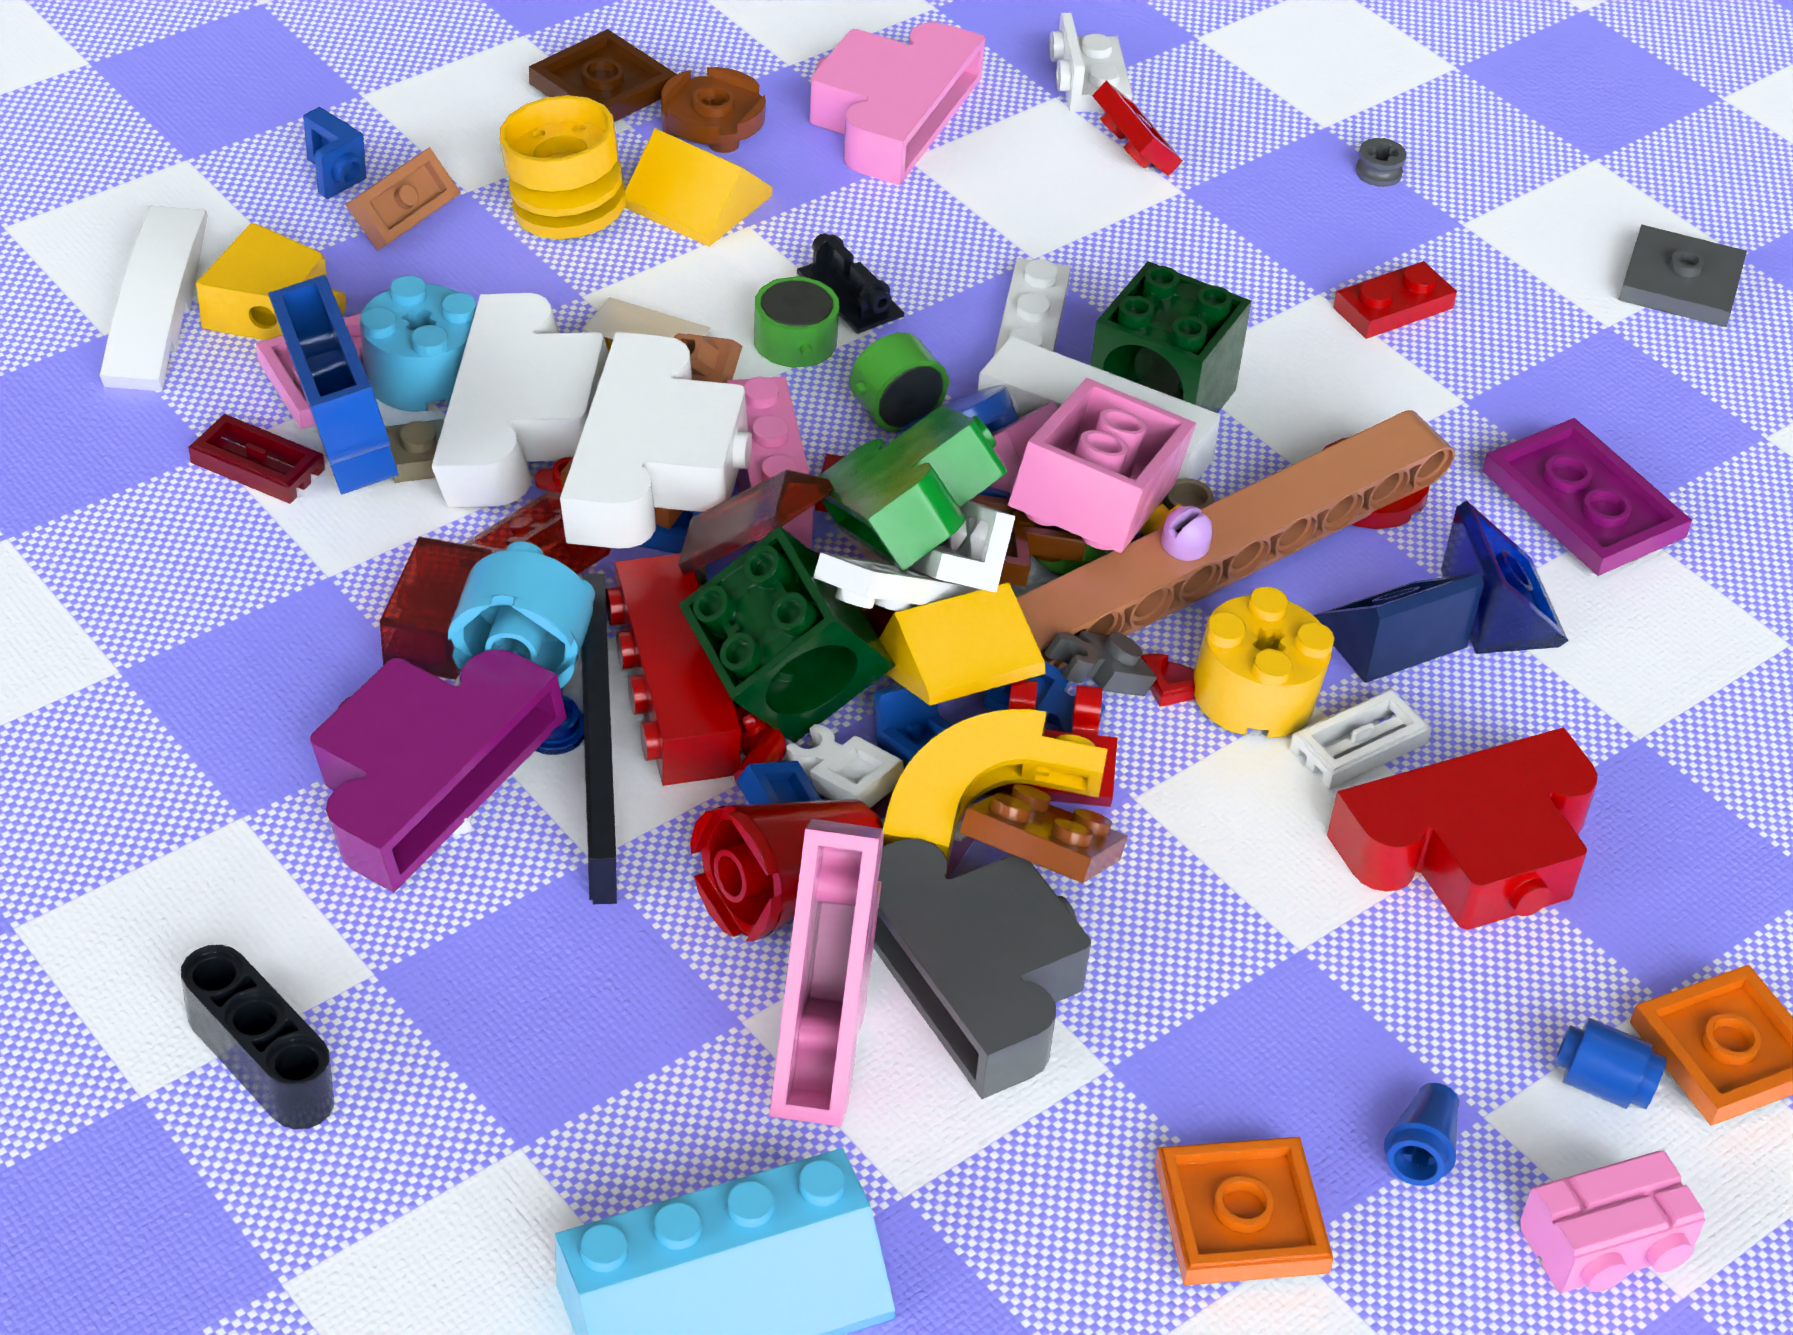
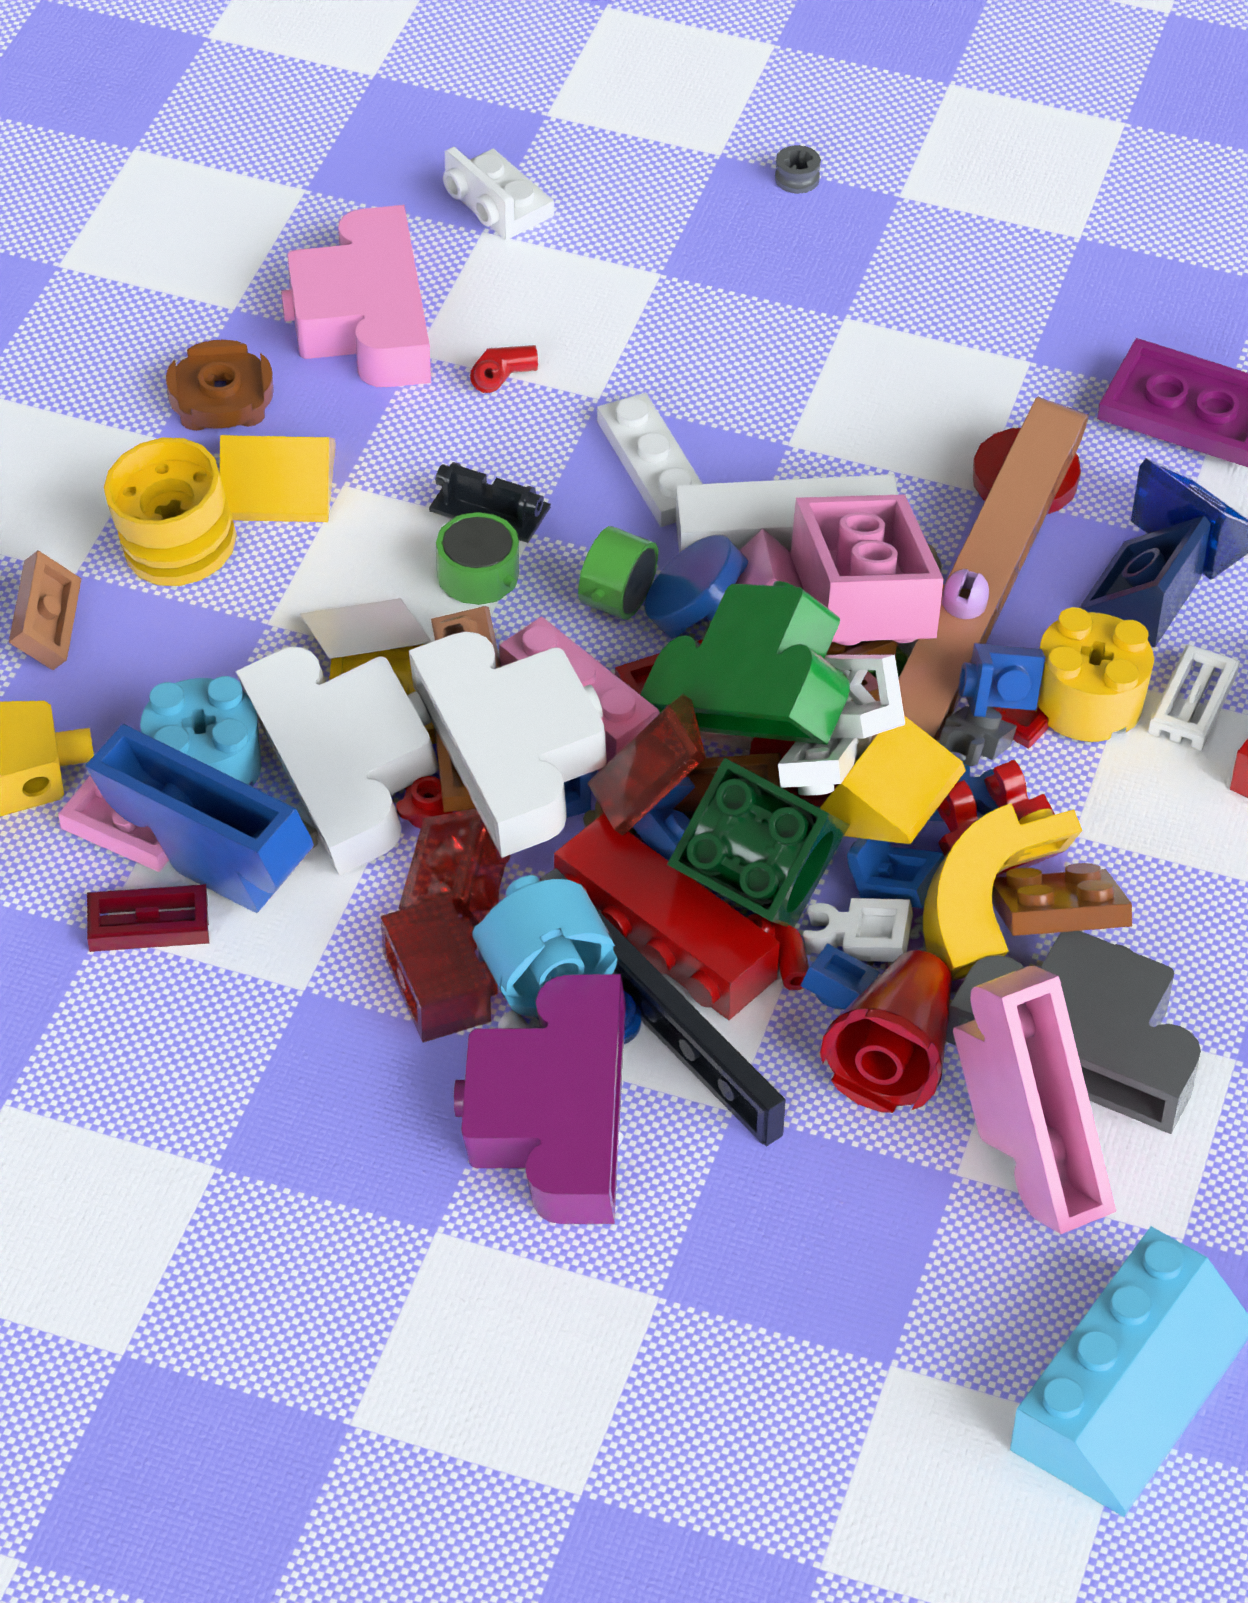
camera: 30 degrees left, 5 degrees up
(258, 1036) = (660, 1418): black beam -> none
(604, 71) = (100, 404): reddish brown plate -> none
(962, 192) = (498, 364): none -> red arm
(1127, 120) = (568, 228): red plate -> none
(1158, 619) = (1001, 678): none -> blue bracket
(1174, 336) = (809, 422): dark green brick -> none
(1394, 299) = (910, 295): red plate -> none
(1683, 275) = (1103, 163): dark grey plate -> none

